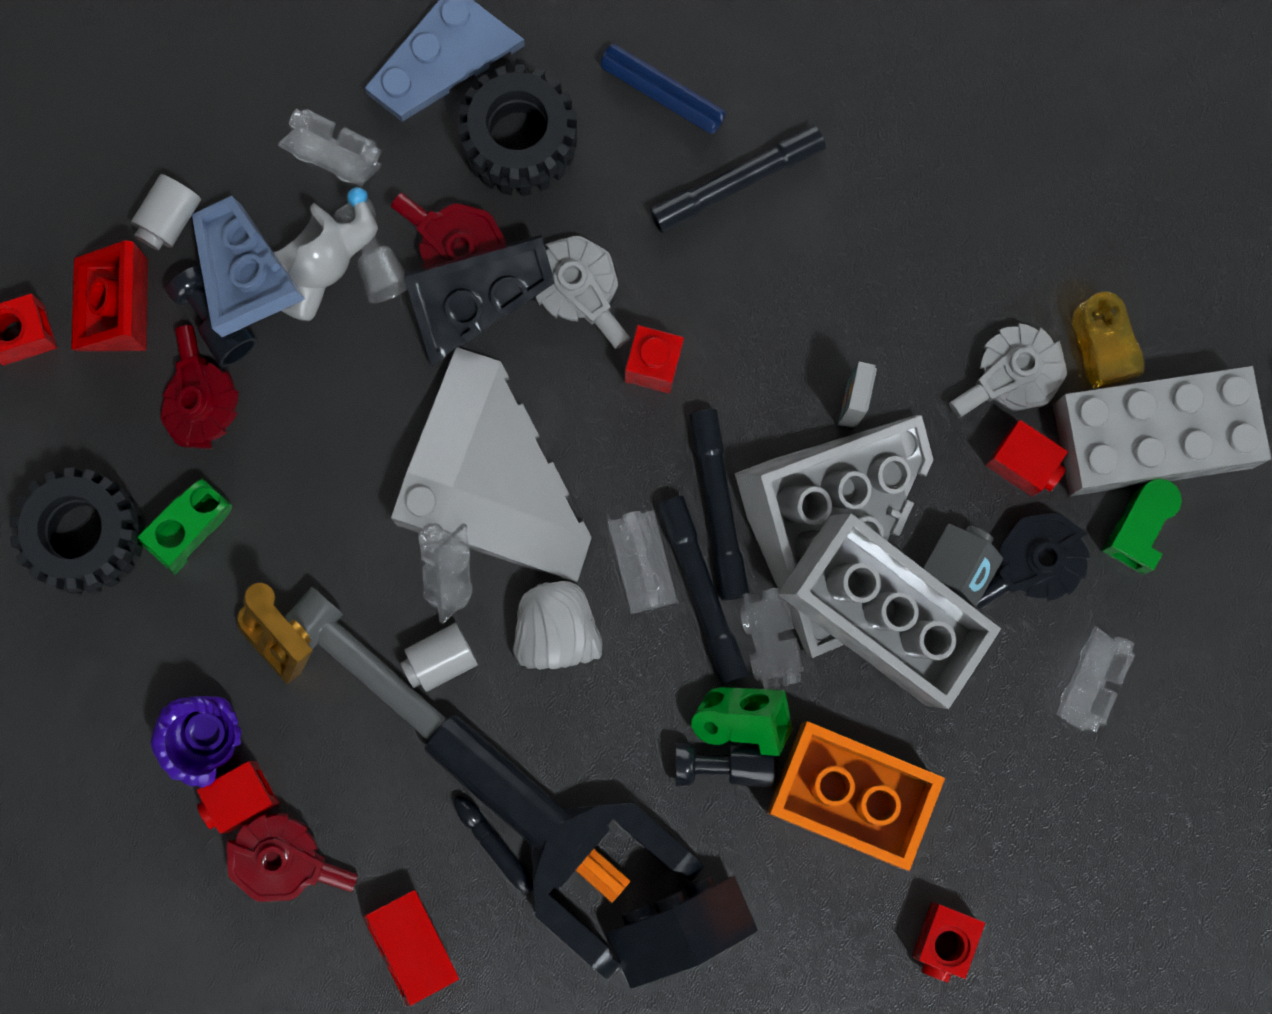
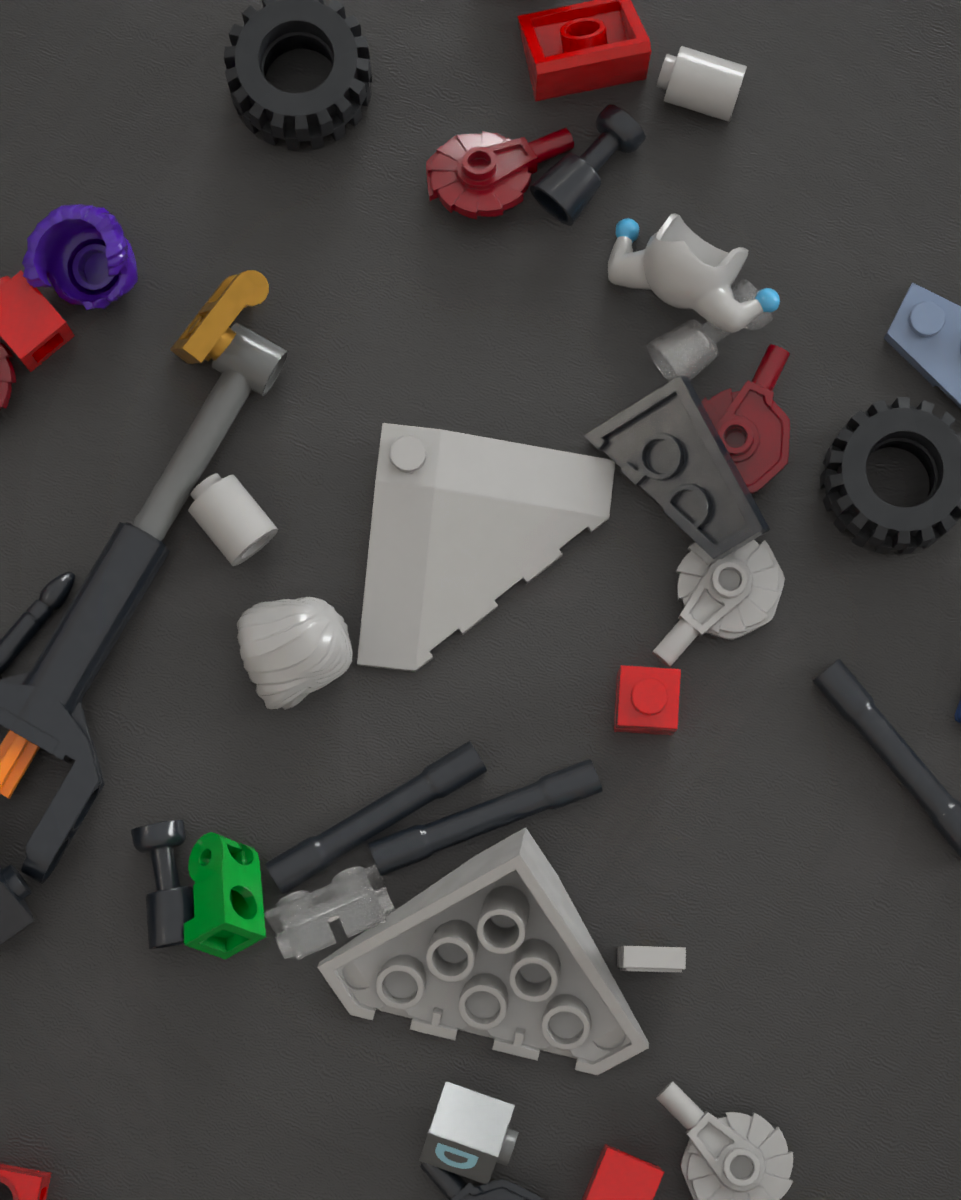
camera: 85 degrees right, 0 degrees up
(185, 525) = (332, 190): green leg -> none
(239, 268) = (650, 182): sand blue wing -> none
(349, 157) = (819, 278): clear hinge -> none
(447, 568) = (336, 502): clear hinge -> none
(642, 561) = (396, 738): clear hinge -> none
(855, 795) = (154, 1050): orange brick -> none
(889, 611) = (386, 1049): light grey brick -> none

